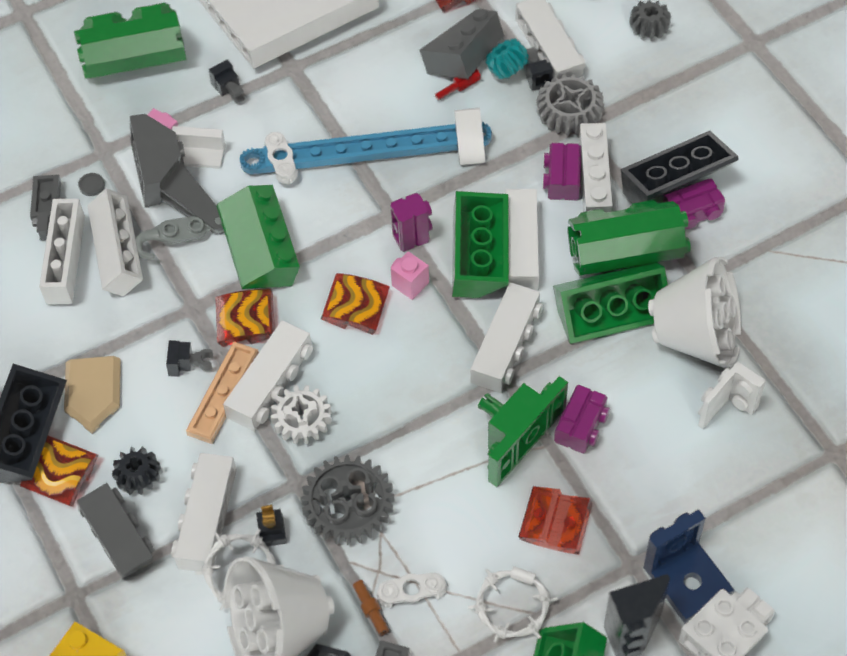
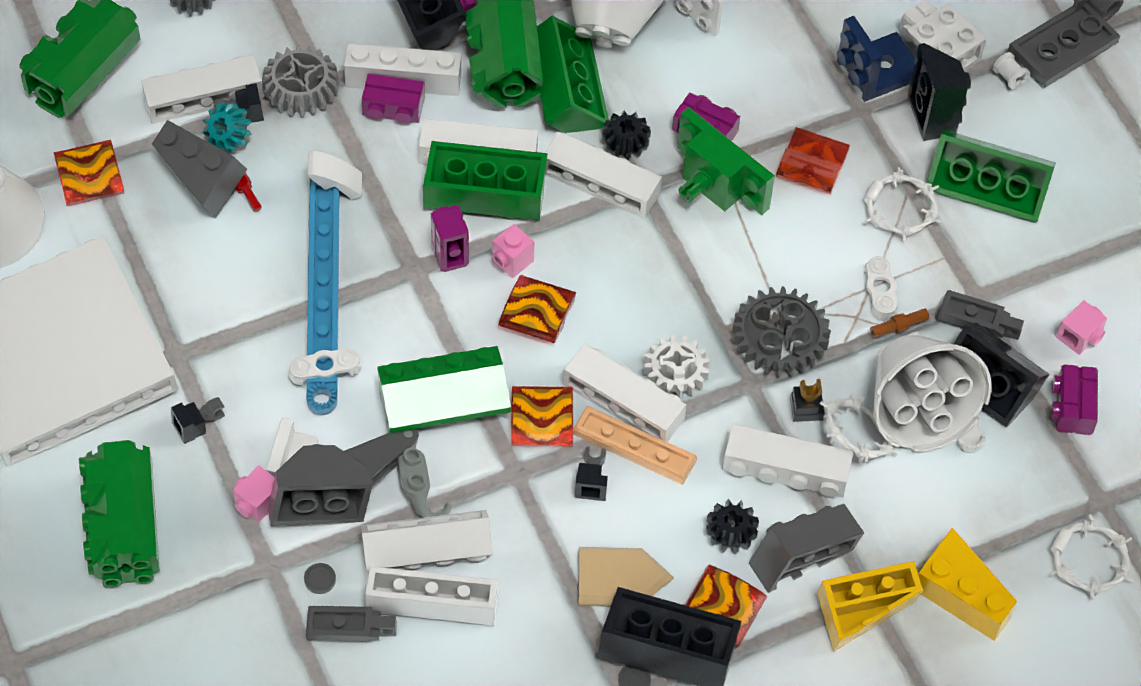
camera: 90 degrees left, 0 degrees up
(55, 581) = (866, 599): none -> yellow wedge
(555, 353) = (626, 134): none -> black gear

